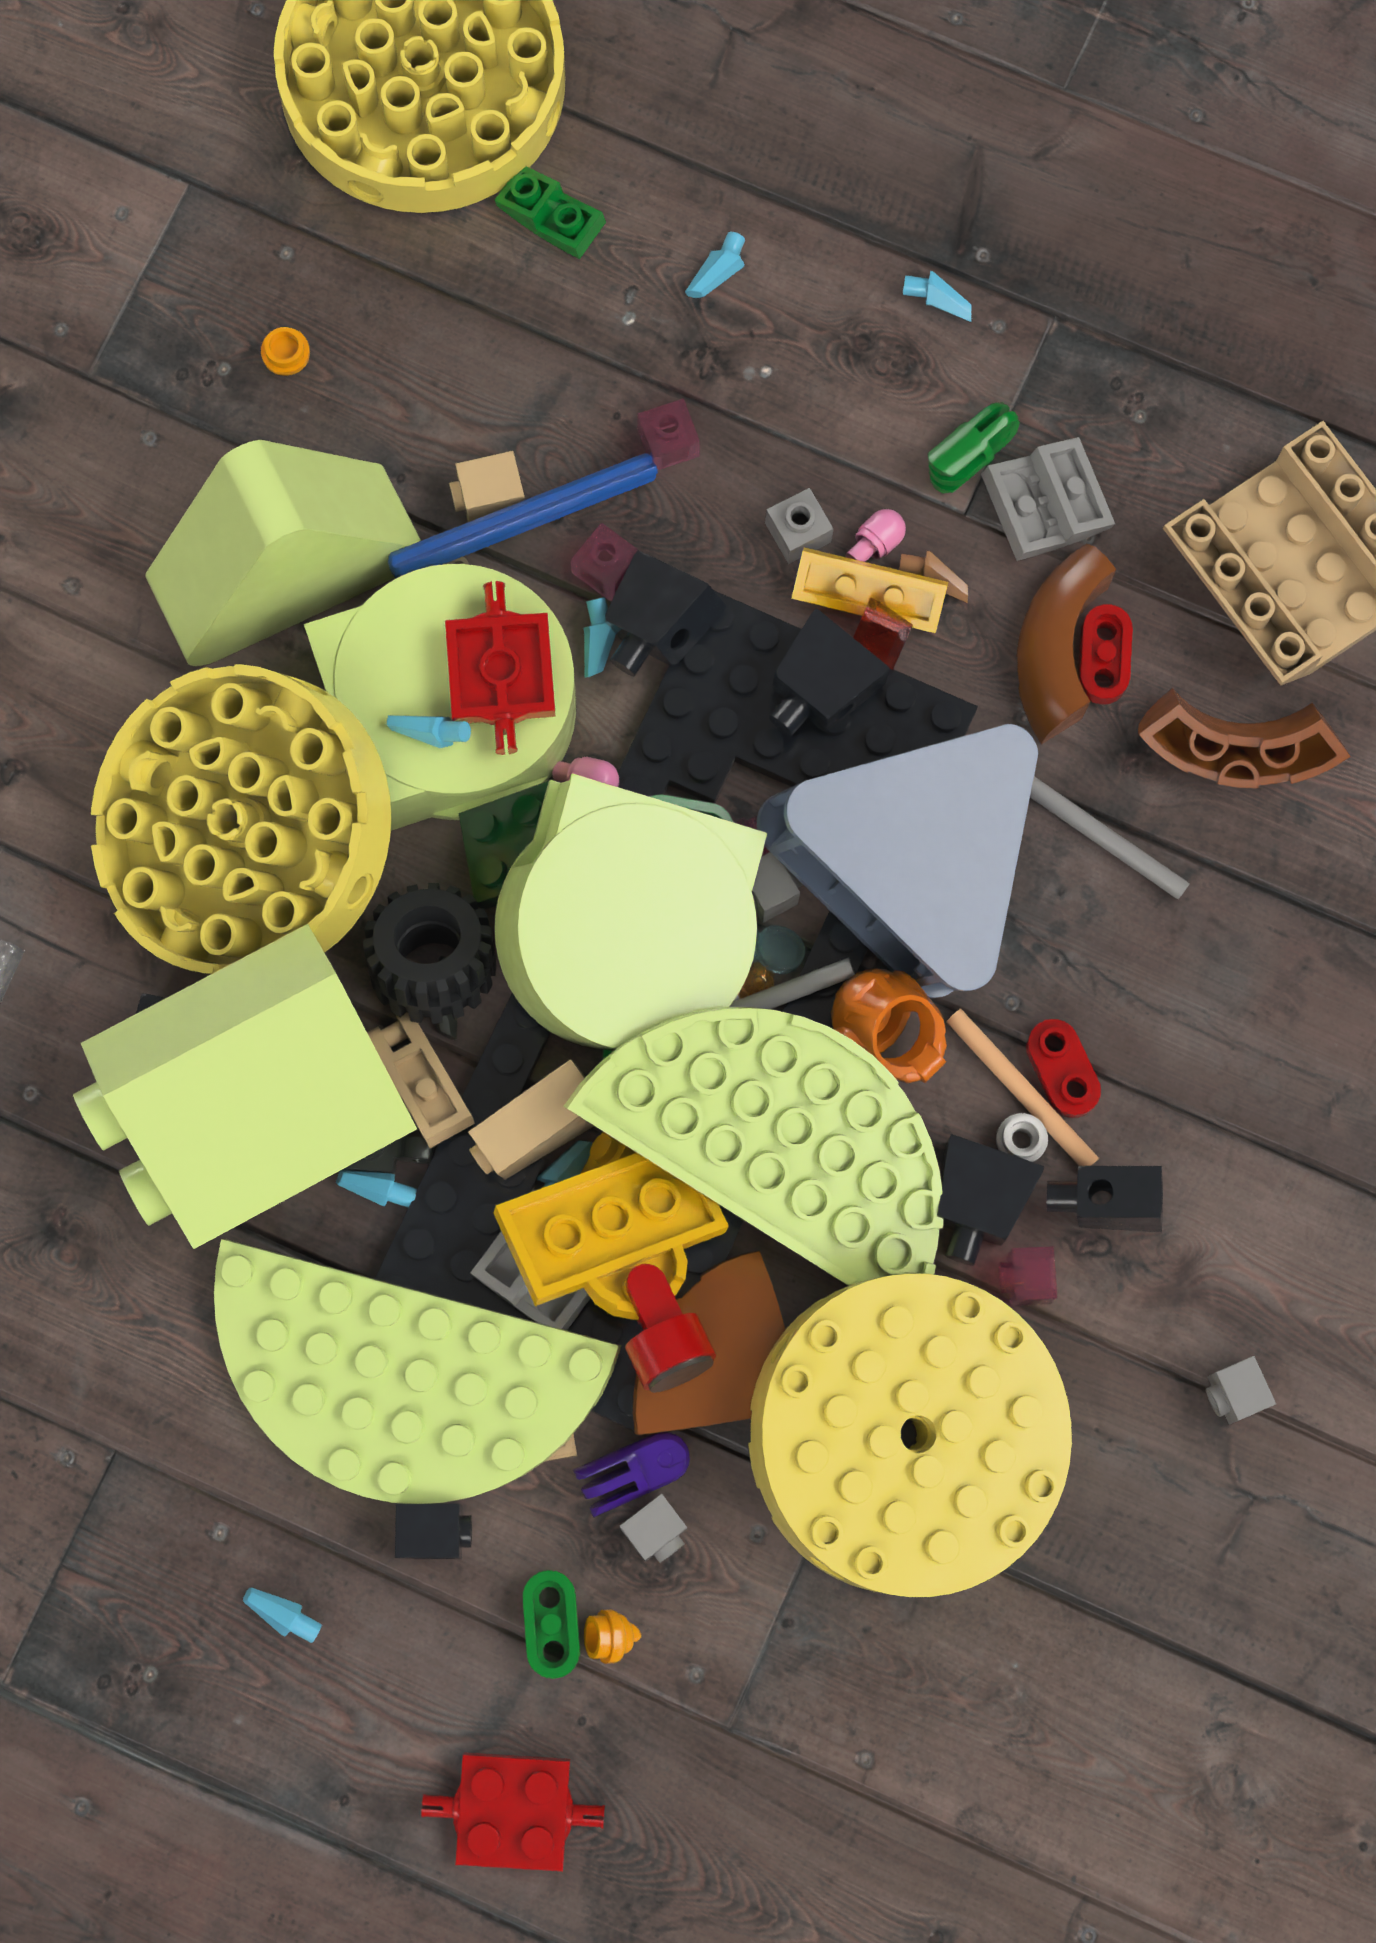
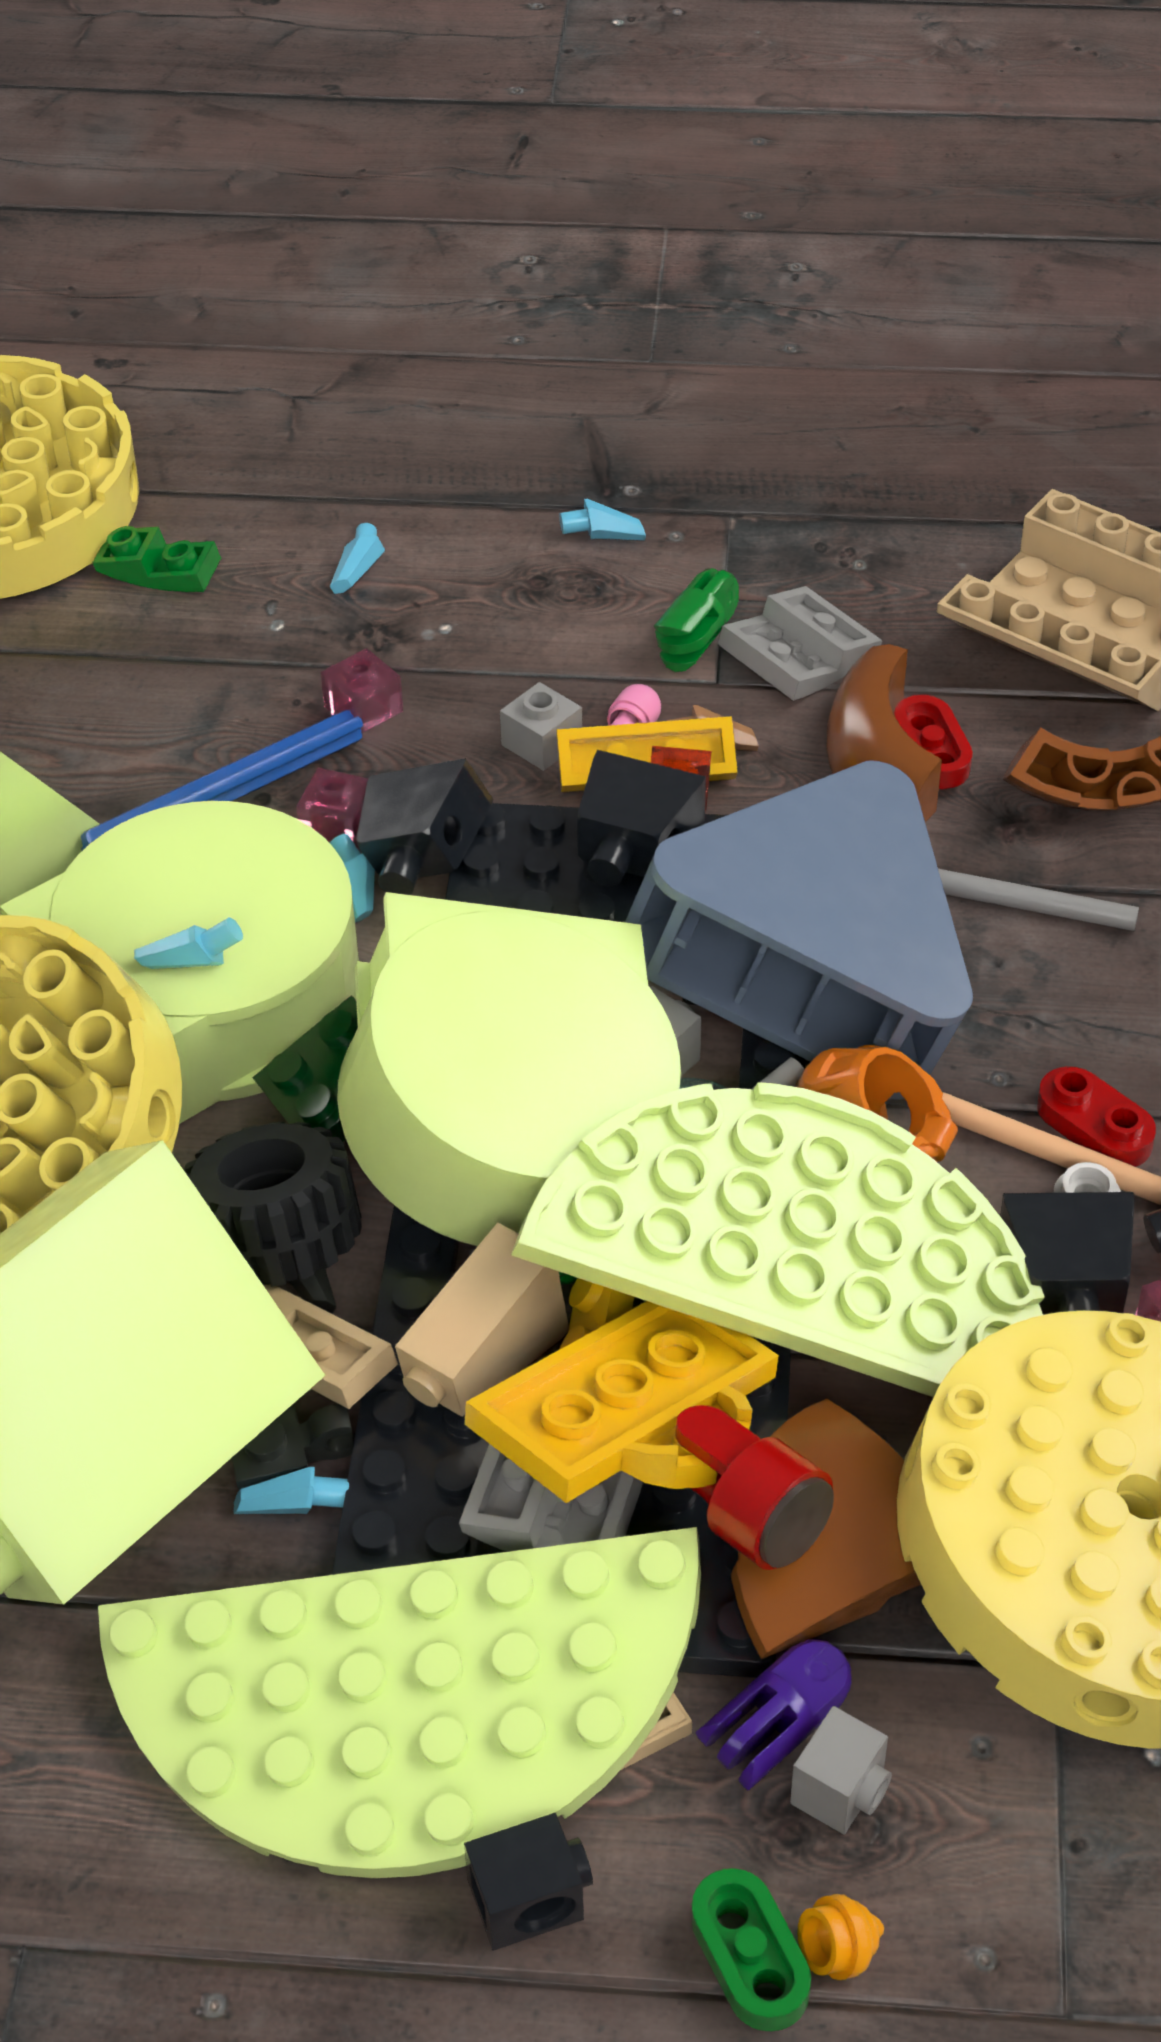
camera: 15 degrees left, 30 degrees down
(486, 485) = (169, 766): tan brick -> none
(500, 668) = (255, 867): red plate -> none

